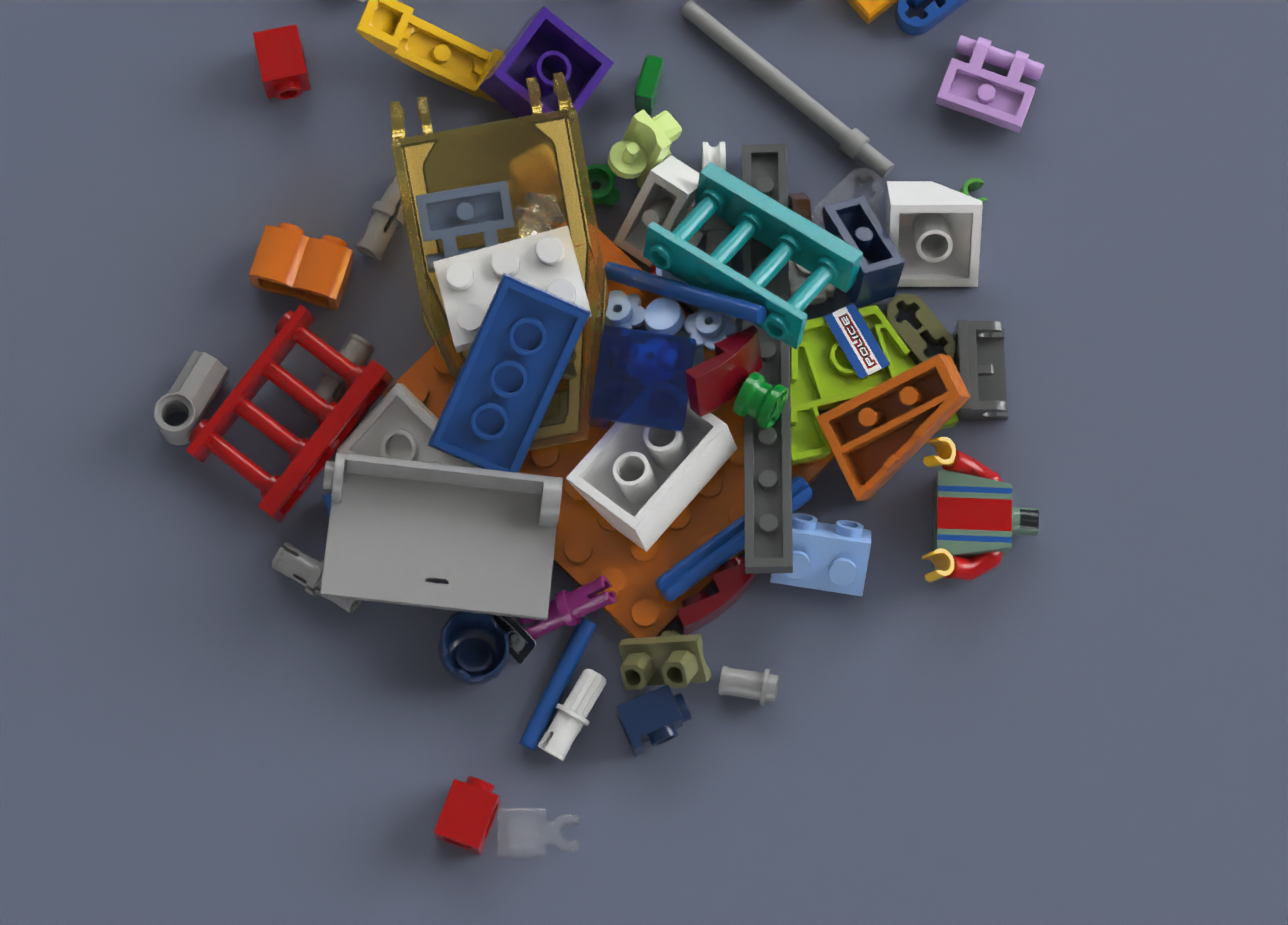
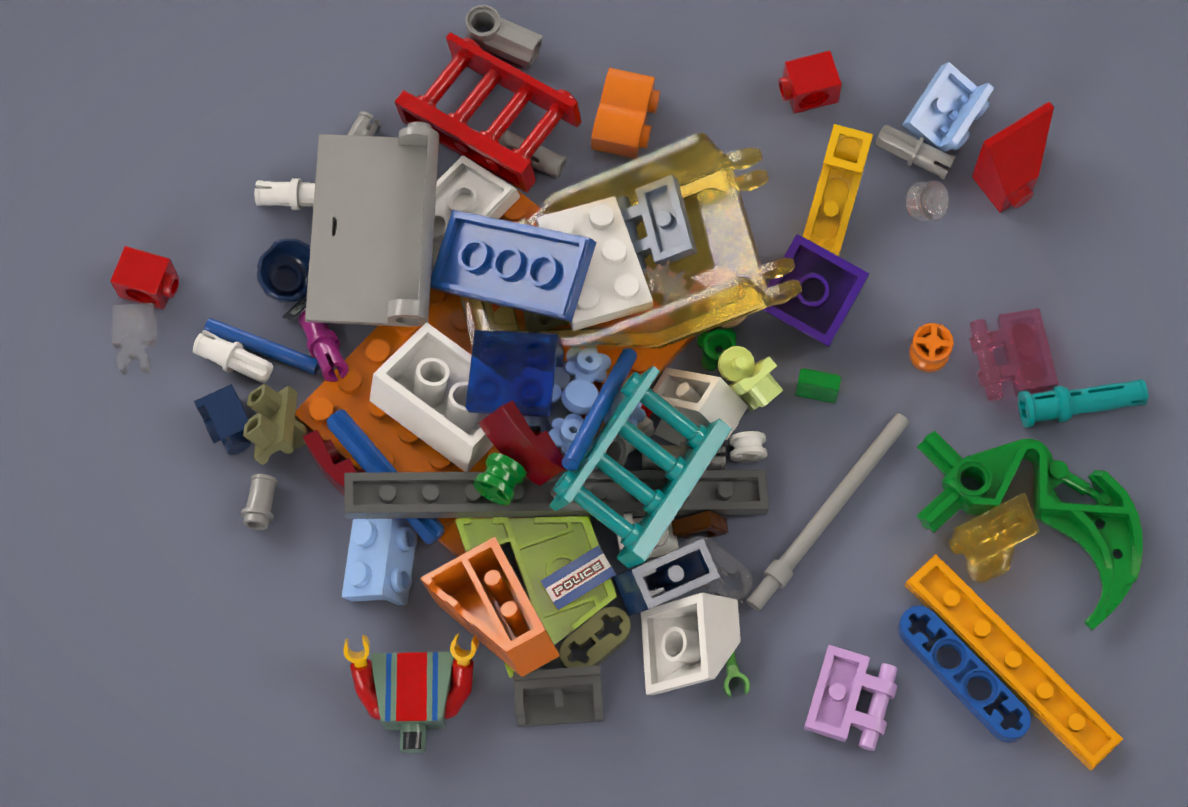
camera: 90 degrees right, 5 degrees down
(370, 643) = (292, 193): none -> white pin

